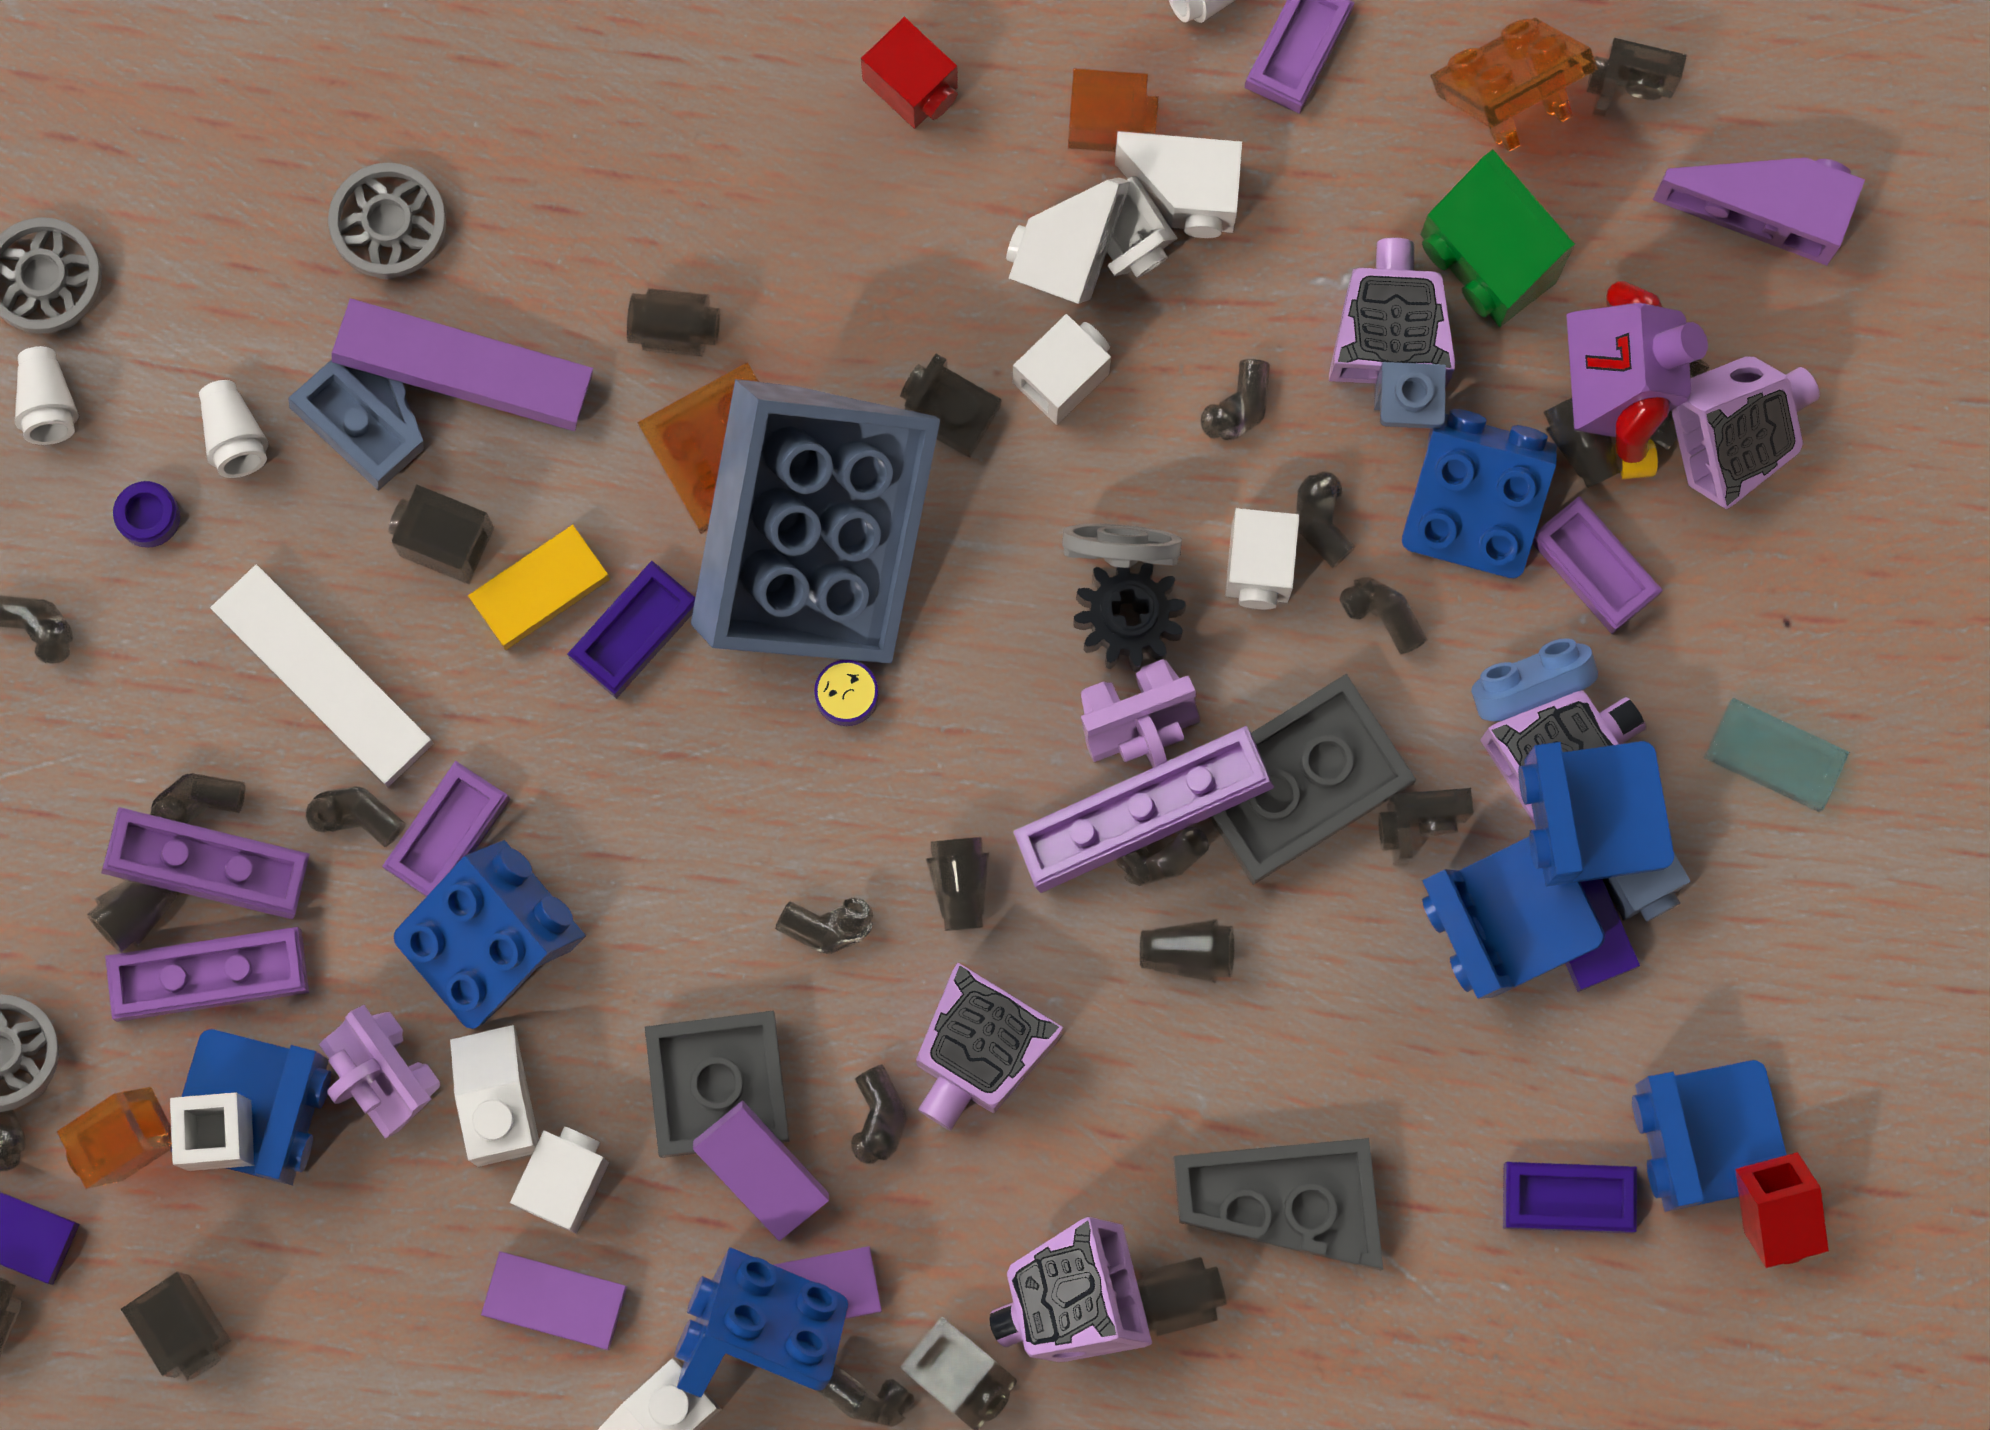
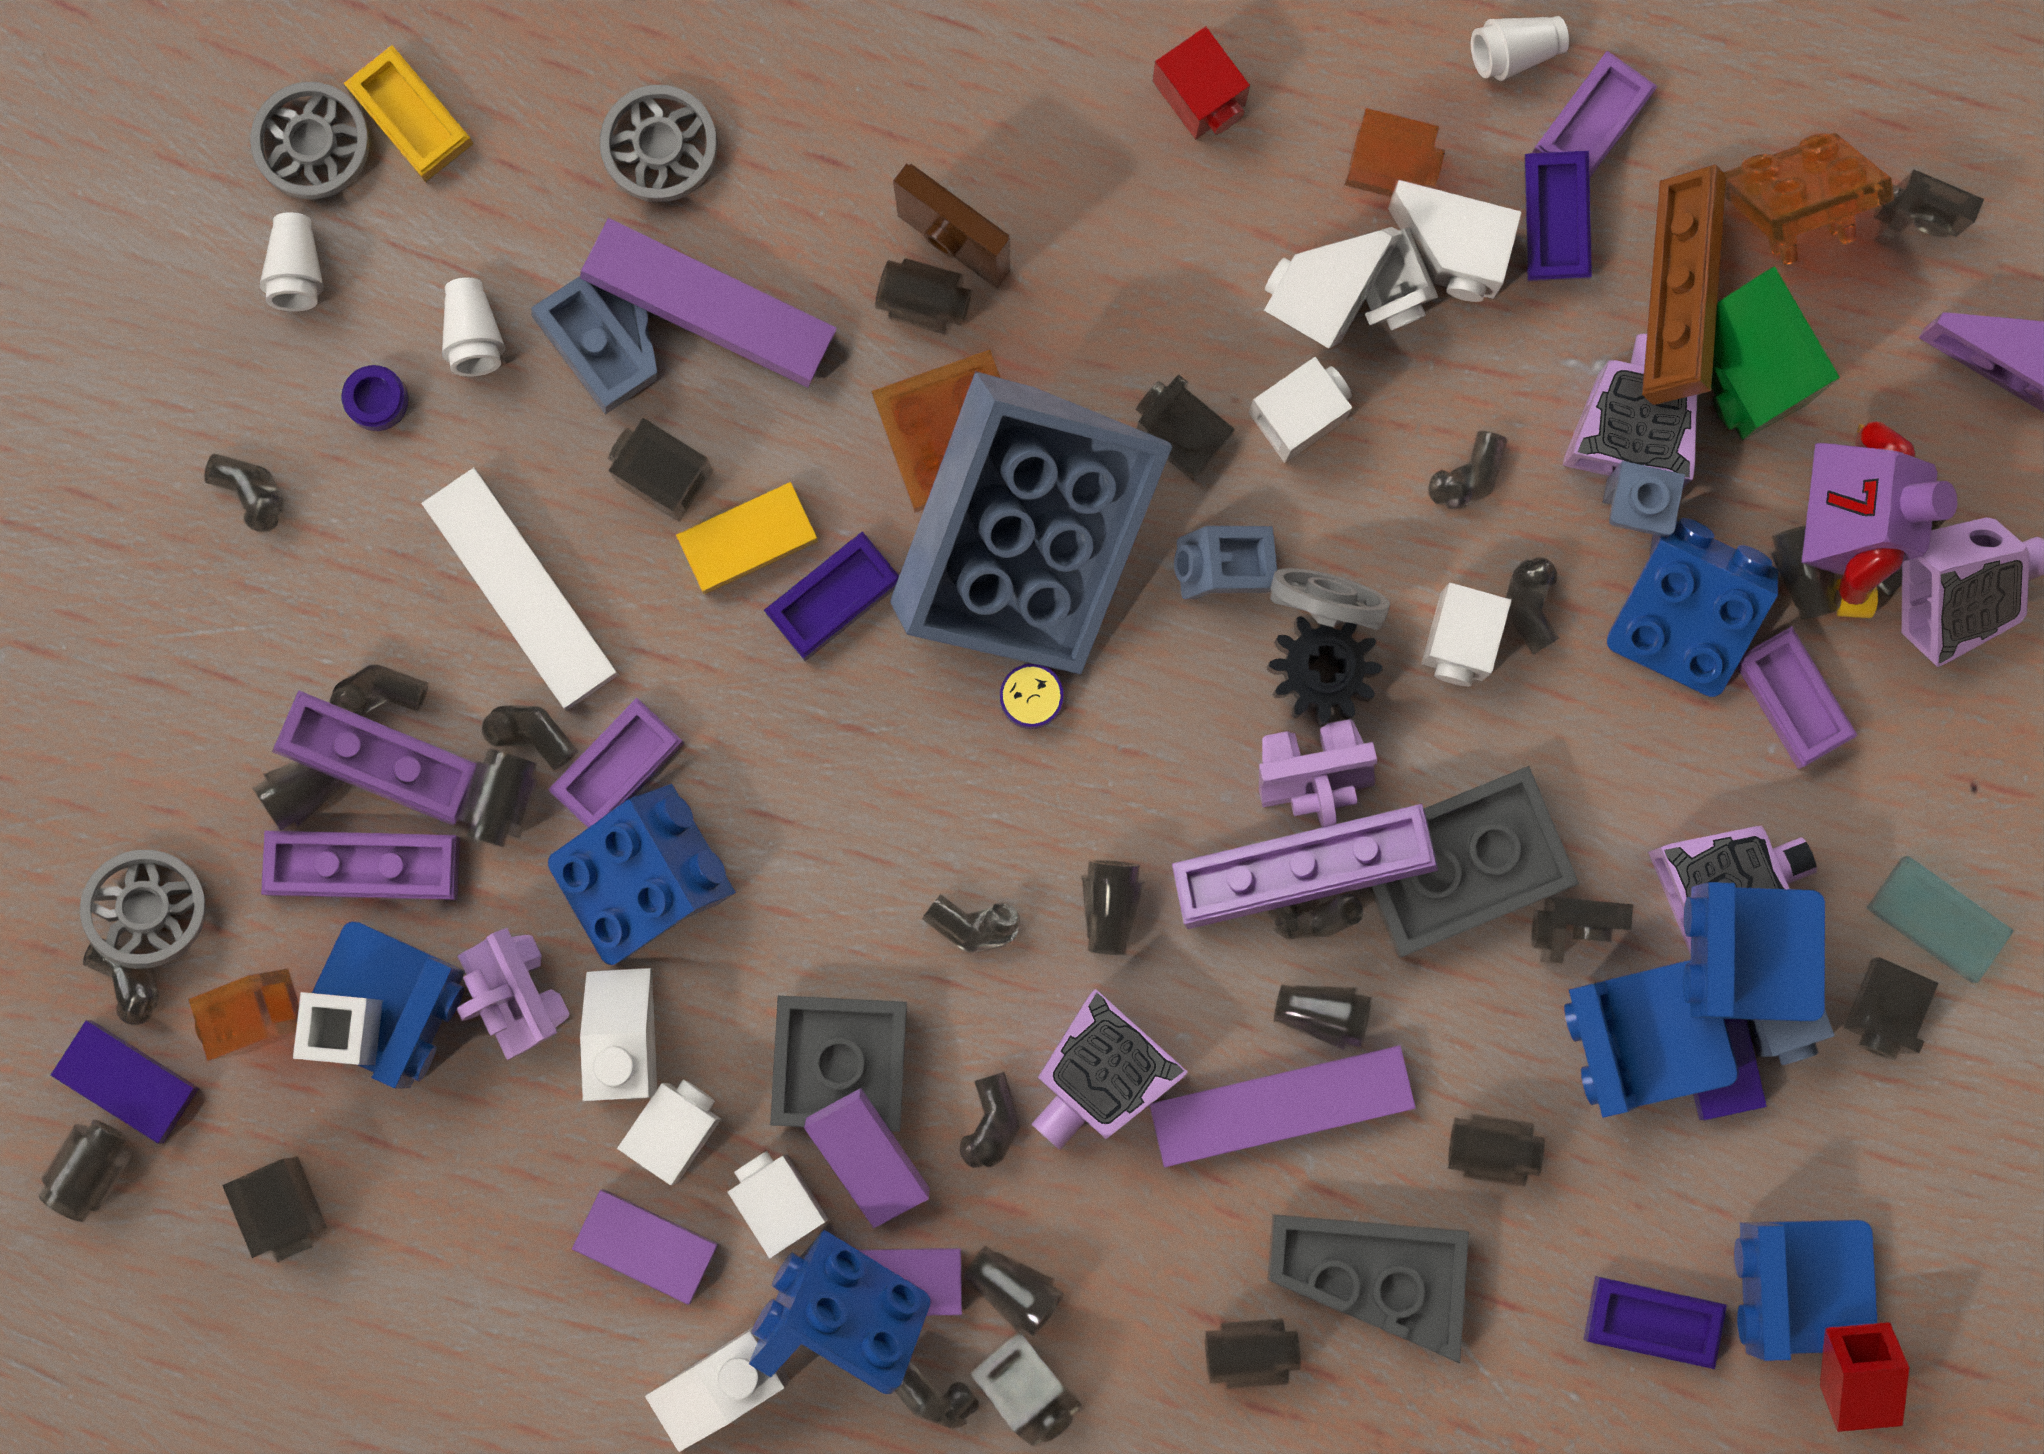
camera: 10 degrees right, 5 degrees up
(135, 233) = (408, 113): none -> yellow tile
(334, 881) = (499, 797): none -> clear smoke brick
(677, 1231) = (776, 1202): none -> white brick
(690, 247) = (952, 225): none -> reddish brown plate
(930, 1277) = (1014, 1290): none -> clear smoke cone
(1014, 527) = (1225, 560): none -> sand blue bracket
(1074, 1297) = (1153, 1339): torso -> none
(1163, 1050) = (1282, 1106): none -> medium lavender tile
(1280, 141) = (1558, 216): none -> dark purple tile
(1381, 1054) = (1495, 1149): none -> clear smoke brick
(1387, 604) = (1582, 703): clear smoke arm -> none
(1412, 185) = (1684, 285): none -> dark orange tile
(1520, 686) = (1714, 805): medium blue plate -> none
(1744, 850) = (1890, 1009): none -> clear smoke bracket

